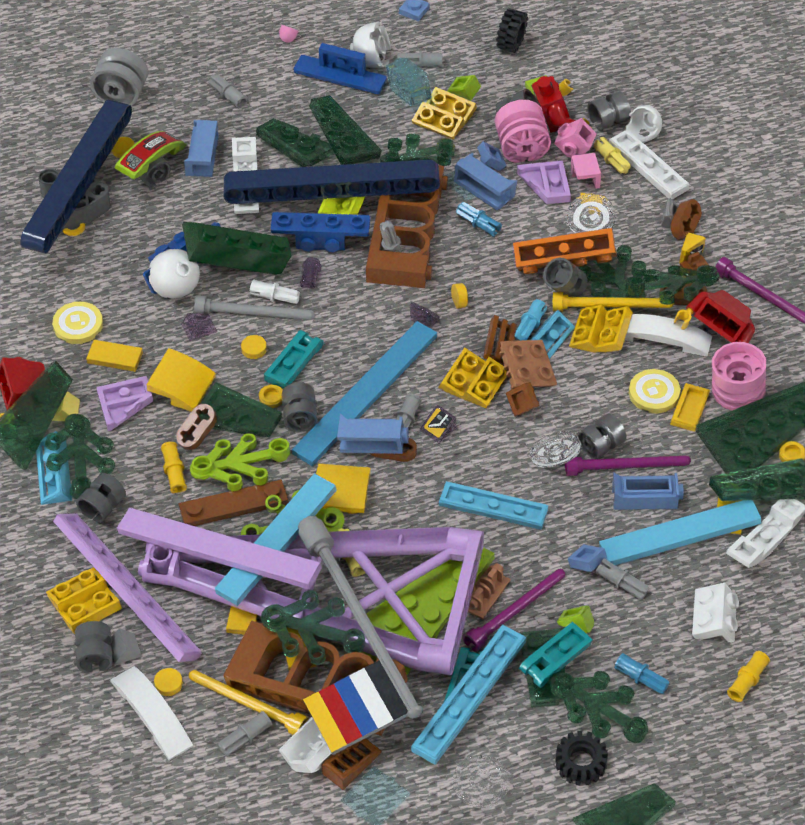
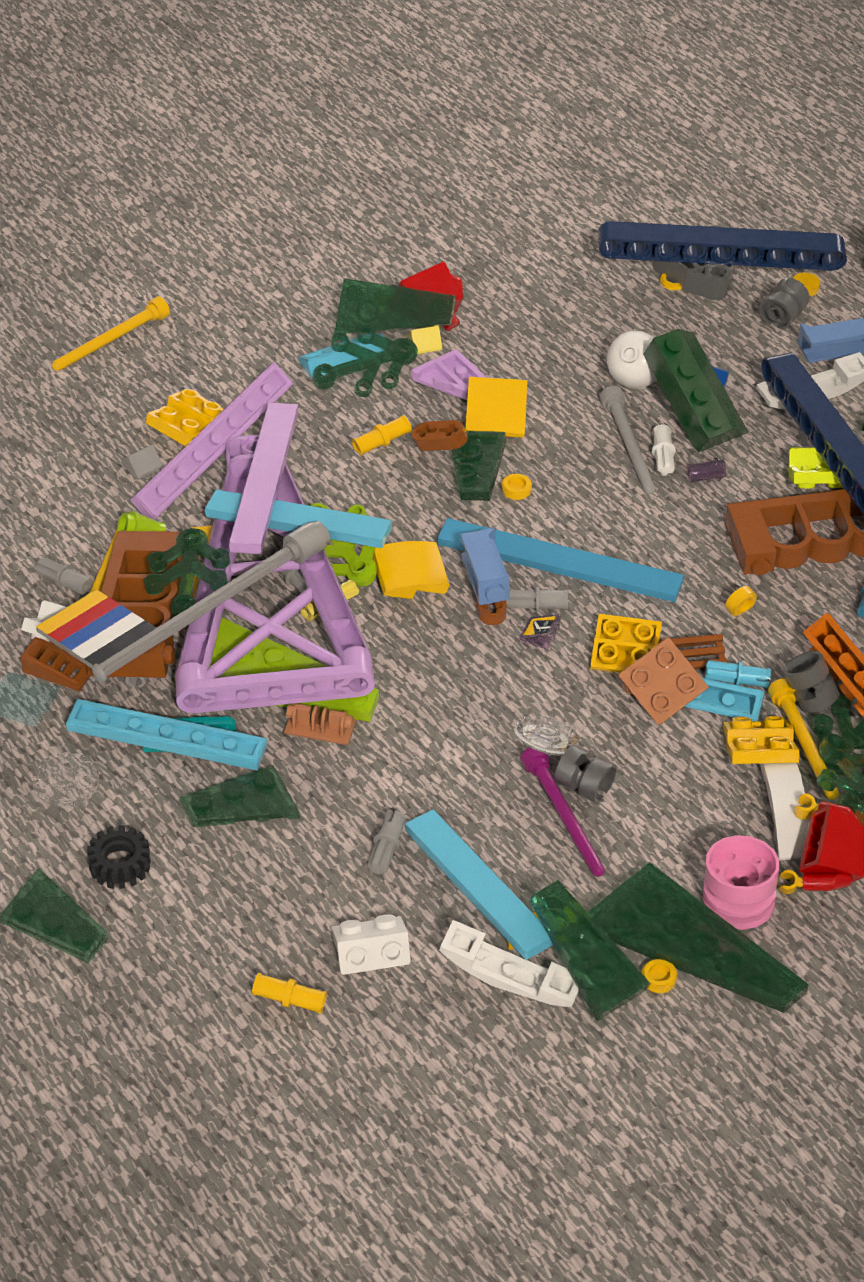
camera: 70 degrees right, 5 degrees down
(77, 322) = (542, 317): light yellow tile -> none
(93, 645) = (127, 434): dark grey wheel -> none
(101, 497) = (314, 390): dark grey wheel -> none
(114, 355) = (512, 355): yellow tile -> none
(145, 151) = (795, 288): slope -> none
(153, 712) = (64, 499): white slope -> none
(168, 681) = (110, 504): yellow tile -> none
(198, 326) = (586, 406): clear purple slope -> none
(209, 466) = (388, 456): lime plant -> none
(216, 662) = (137, 522): none -> lime cone
(231, 503) = (353, 488): dark orange plate -> none
(253, 347) = (578, 455): yellow tile -> none
(293, 359) = (575, 488): teal plate -> none
(299, 406) = (509, 504): flat silver wheel -> none
(318, 230) = (766, 455): blue bracket -> none
(390, 240) = (777, 512): light grey axle -> none
(423, 315) = (697, 578): clear purple slope -> none
(479, 636) = (253, 726): magenta piece -> none
(493, 505) = (448, 706): medium azure tile -> none
(522, 399) = (607, 688): dark orange tile -> none
(556, 654) = (243, 795): teal plate -> none
(568, 688) = (194, 848): clear green plant -> none
(580, 616) = (310, 813): lime slope -> none
(587, 558) = (401, 800): medium blue plate -> none
(641, 673) = (257, 889): dark azure axle -> none
(646, 492) = (530, 861): medium blue window -> none
(654, 391) = (691, 816): light yellow tile -> none
(690, 407) = (679, 856): yellow tile -> none

